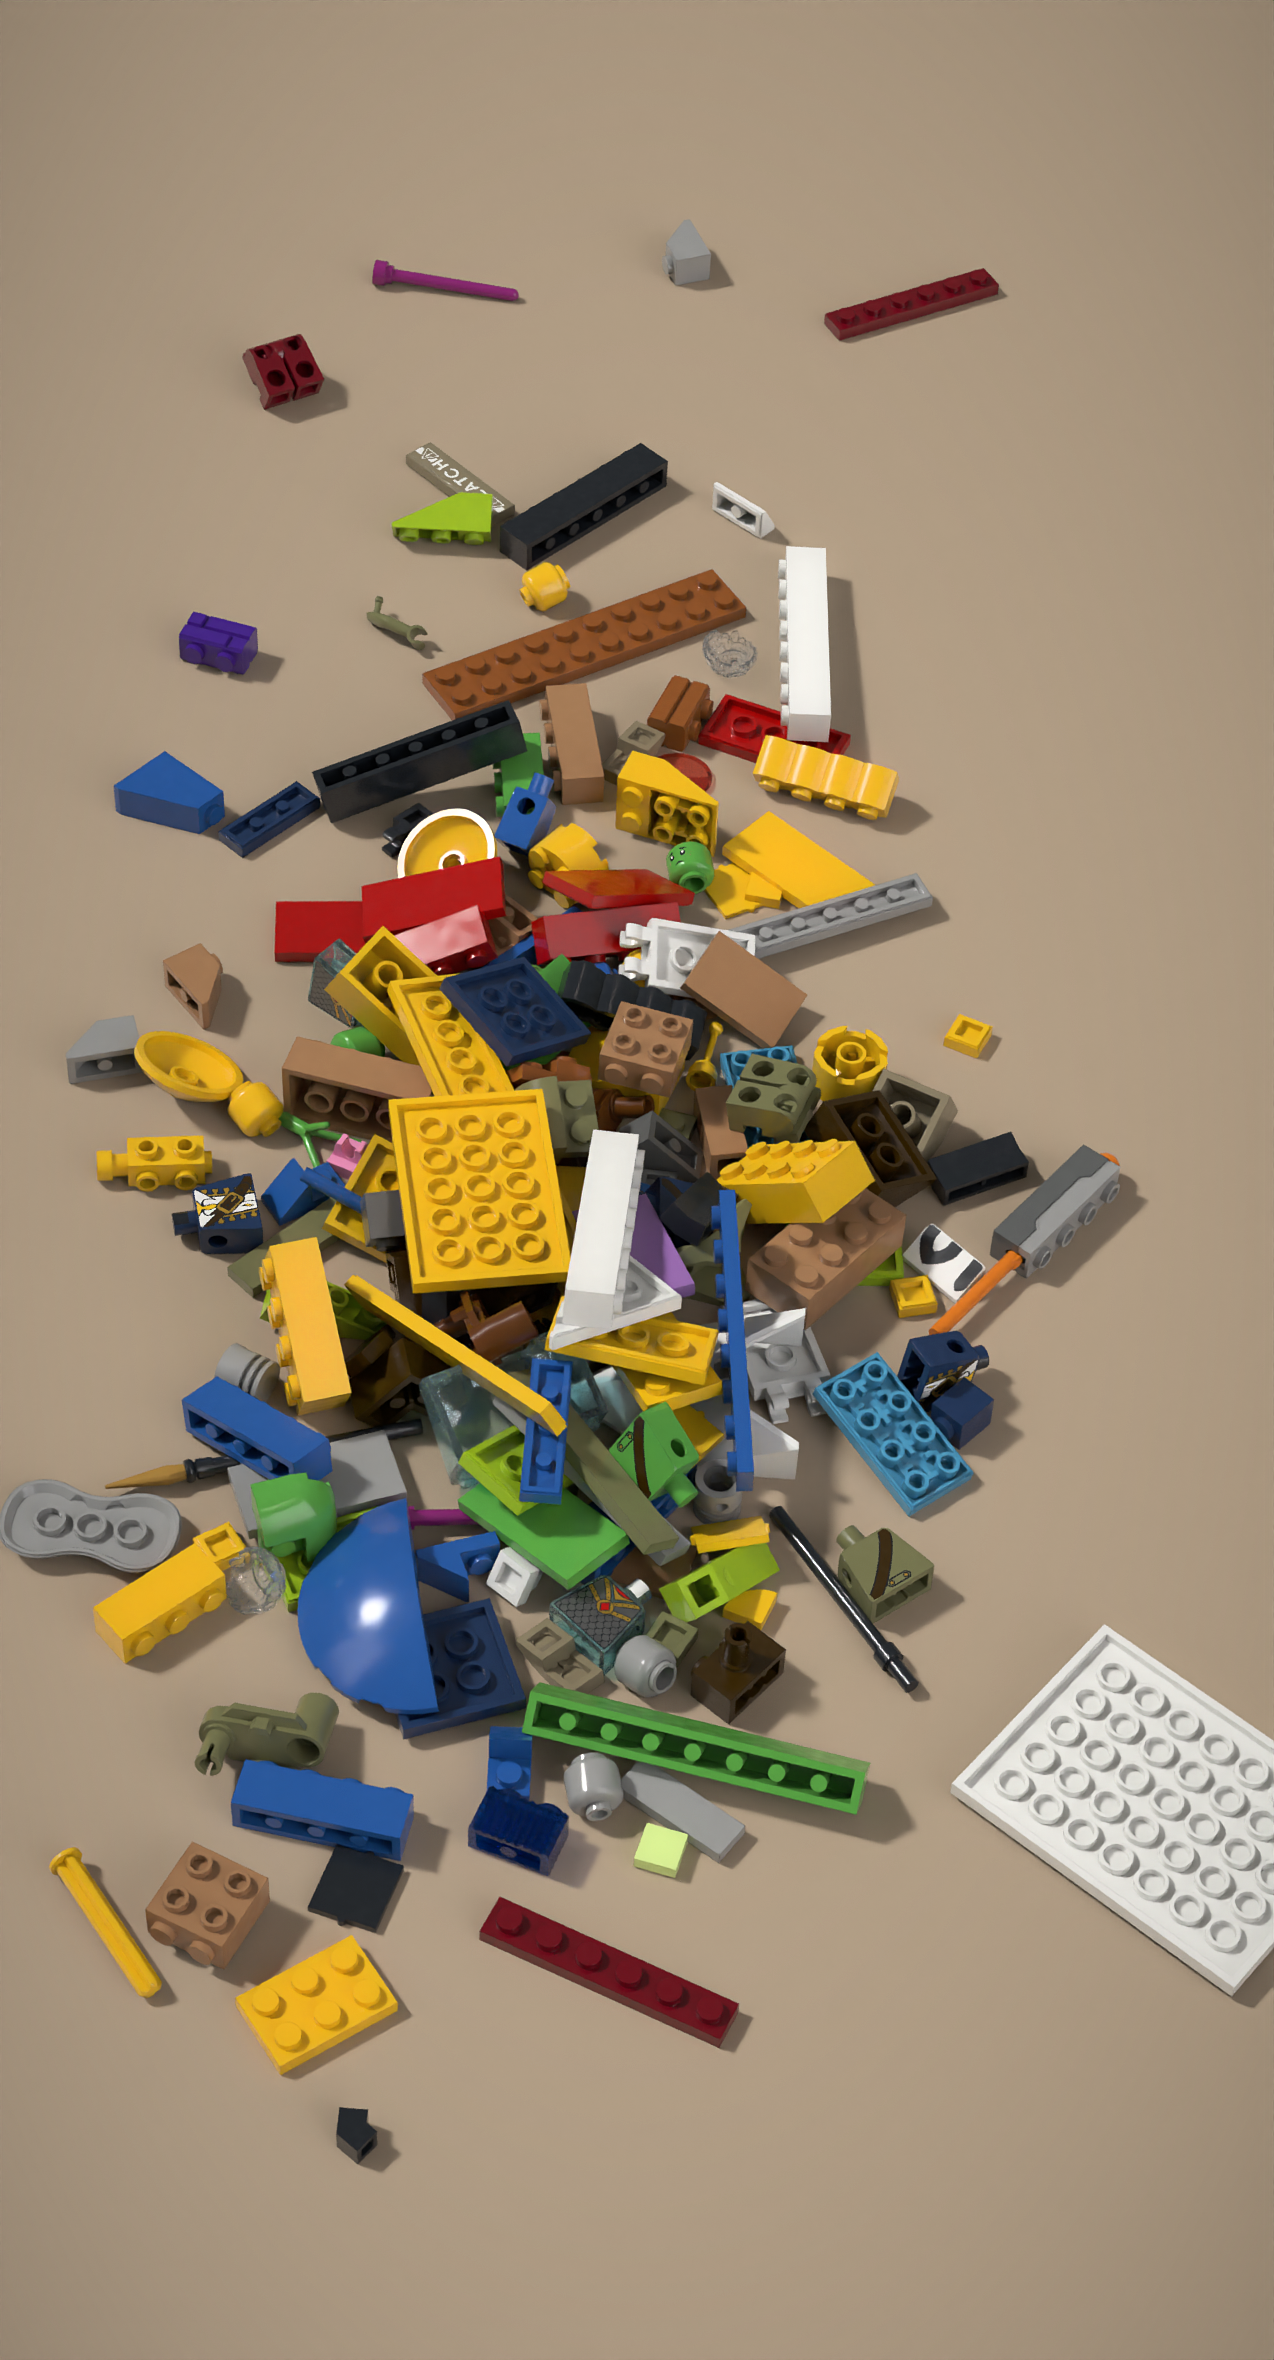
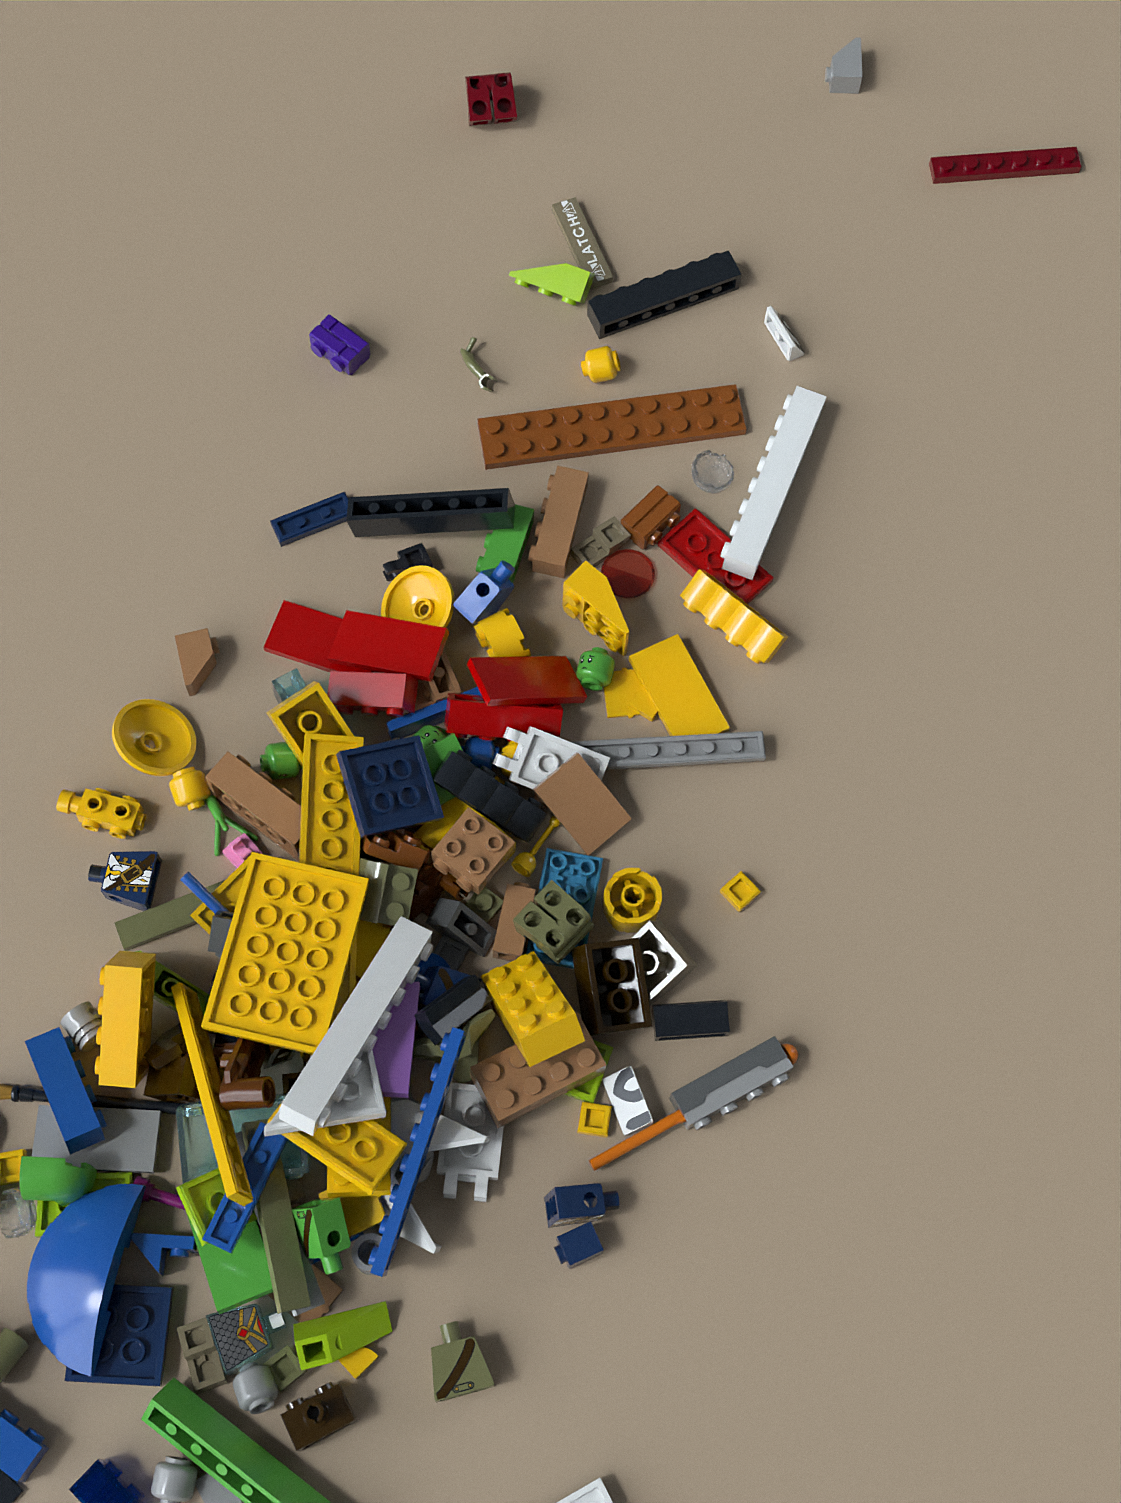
camera: 20 degrees right, 20 degrees up
(104, 1051) = (106, 697): light grey slope -> none
(170, 796) = (247, 478): blue slope -> none
(291, 1198) = (205, 868): blue slope -> none
(386, 273) = (609, 21): magenta piece -> none
(510, 1759) = (128, 1432): blue slope -> none
(513, 1576) = (194, 1274): white tile -> none
(730, 1534) = (363, 1296): yellow piece -> none
(885, 1652) = (434, 1439): black bar -> none
(893, 1434) = (521, 1246): dark azure tile -> none

